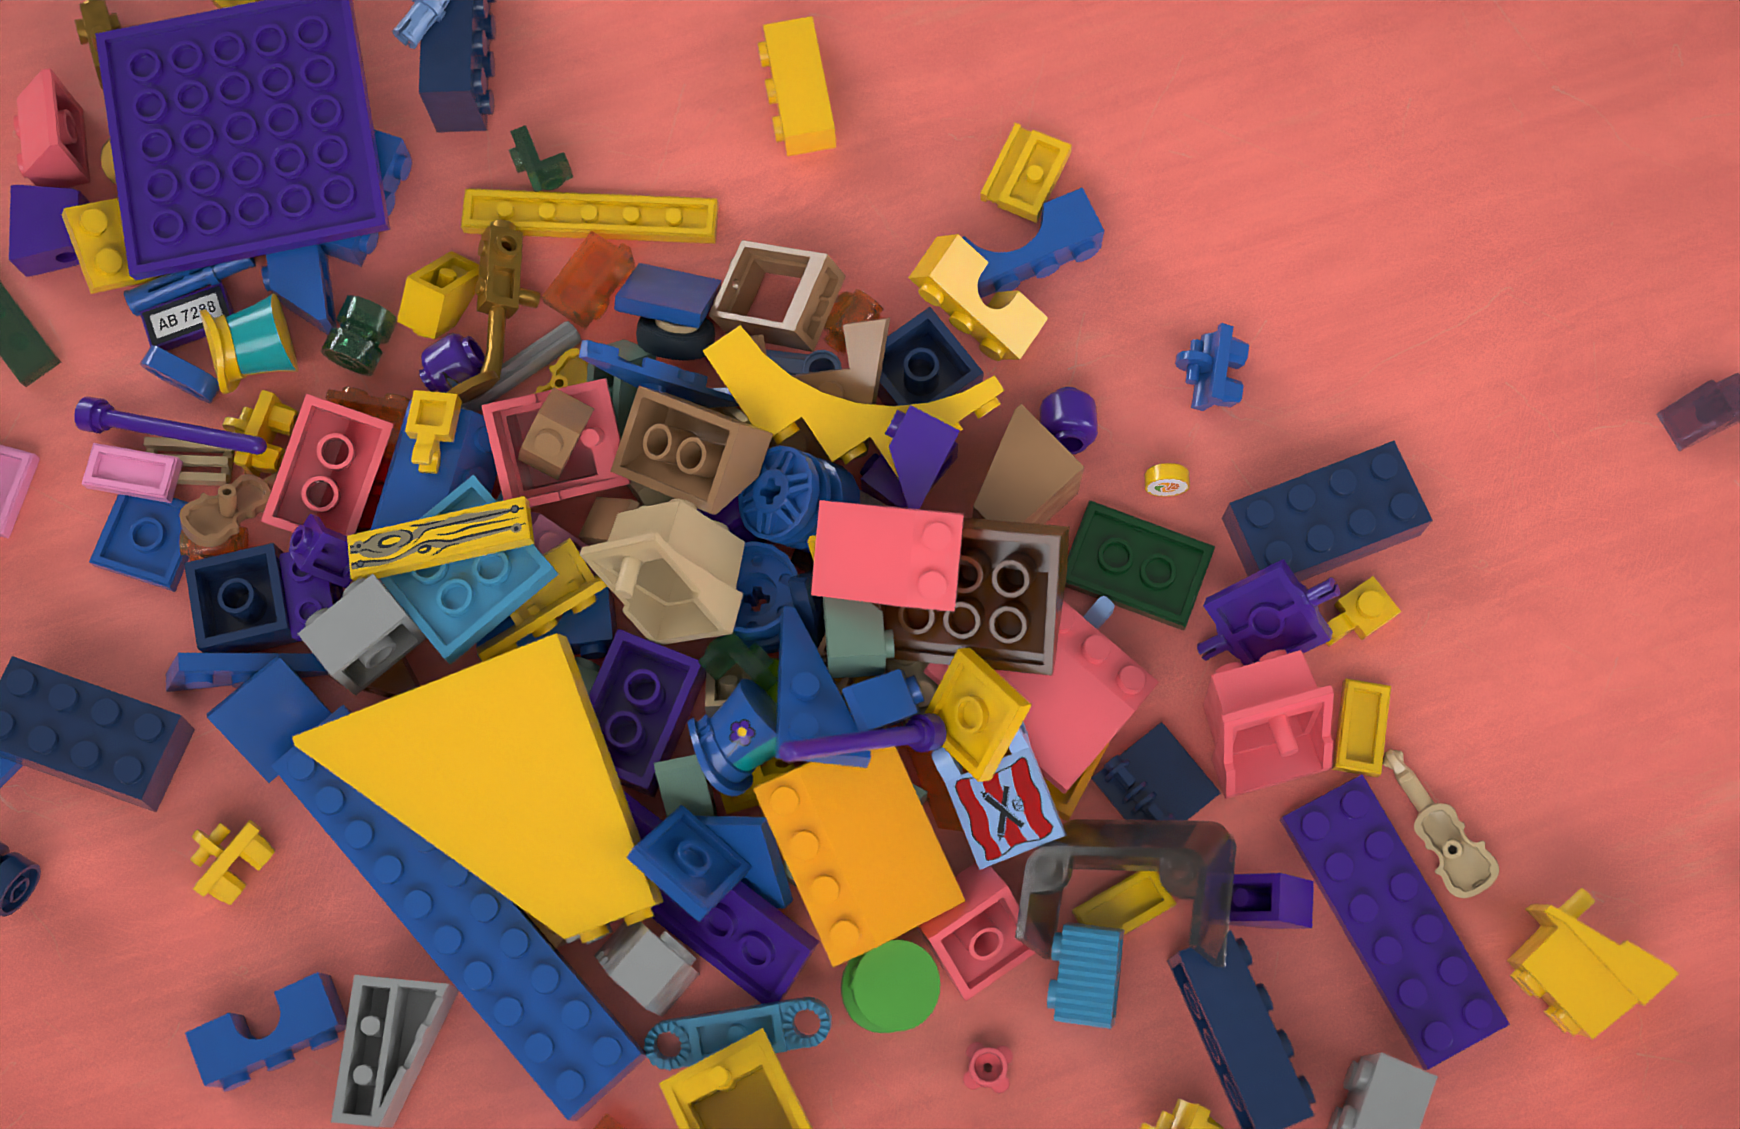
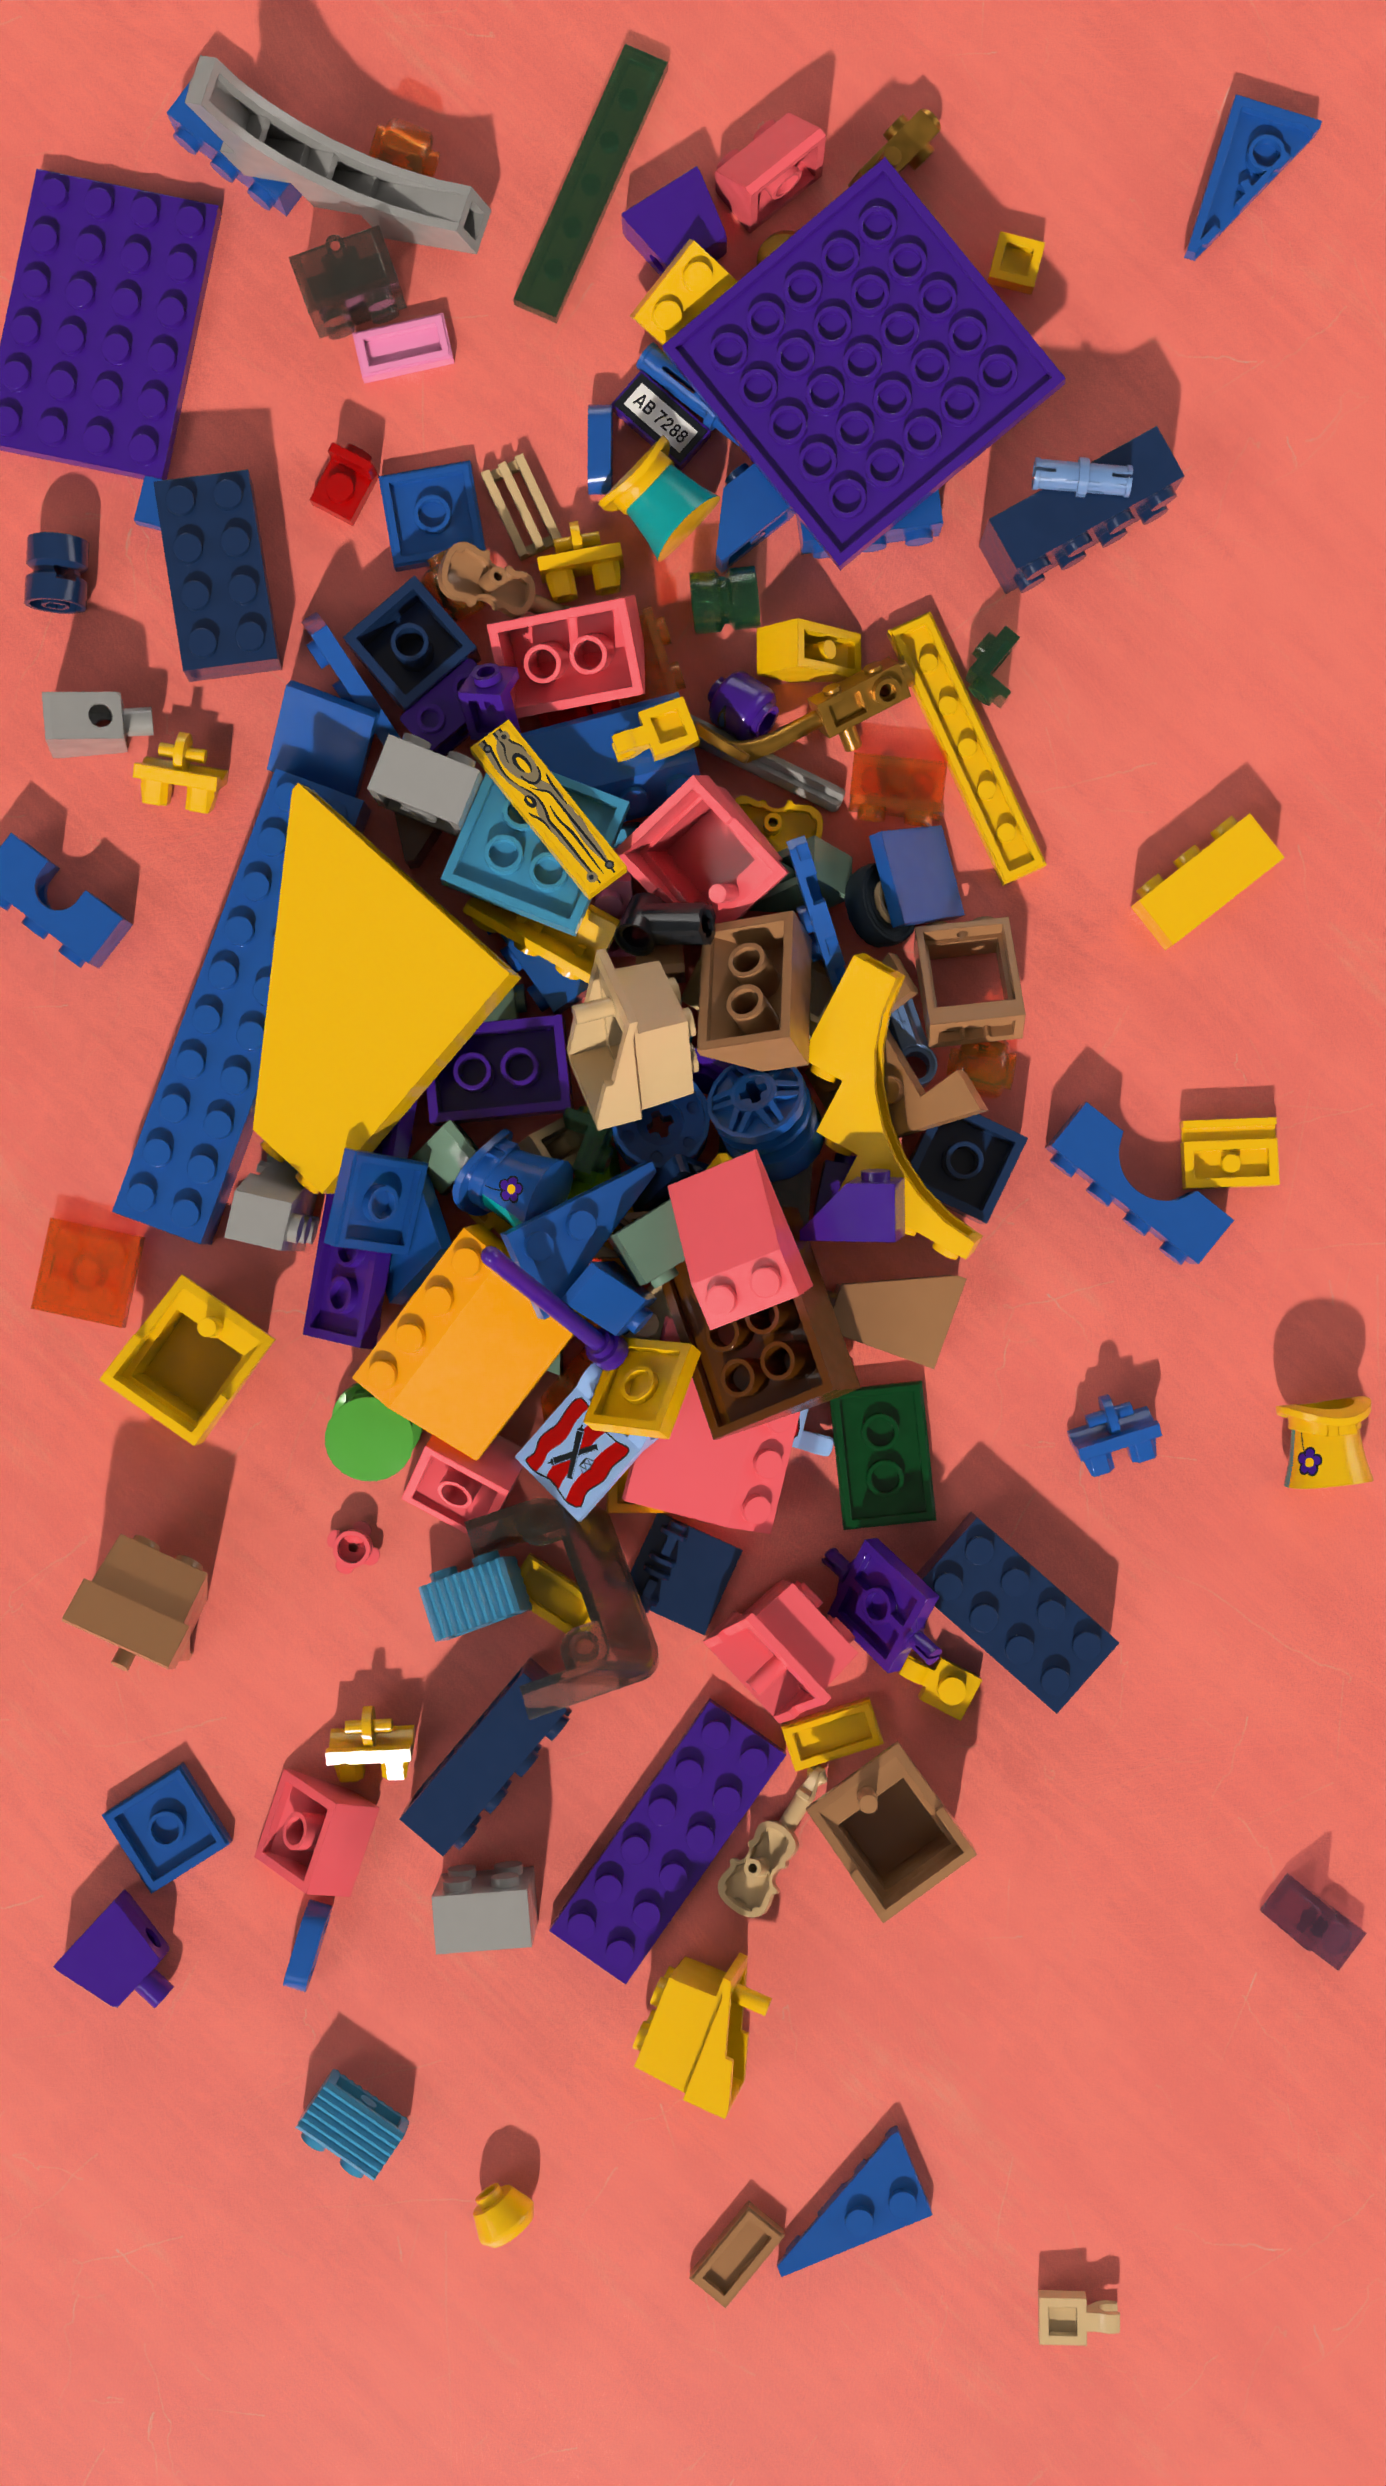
camera: 65 degrees right, 15 degrees up
(76, 592) = (345, 483): none -> red bracket
(98, 415) = (519, 395): dark purple piece -> none
(132, 472) = (480, 465): bright pink tile -> none
(136, 911) = (72, 721): none -> light grey torso
(386, 1045) = (94, 1014): light grey wedge -> none
(554, 433) = (708, 858): medium nougat slope -> none
(590, 499) = (654, 922): none -> black piece
(714, 1031) = (259, 1300): dark azure plate -> none
(950, 279) = (1064, 1144): yellow arch -> none
(1070, 418) = (989, 1323): dark purple head -> none
(1167, 480) = (978, 1444): tile -> none
(1271, 901) = (624, 1728): dark purple slope -> none
(1302, 204) = (1326, 1443): none -> yellow hat
(1475, 704) = (891, 1831): none -> medium nougat piece

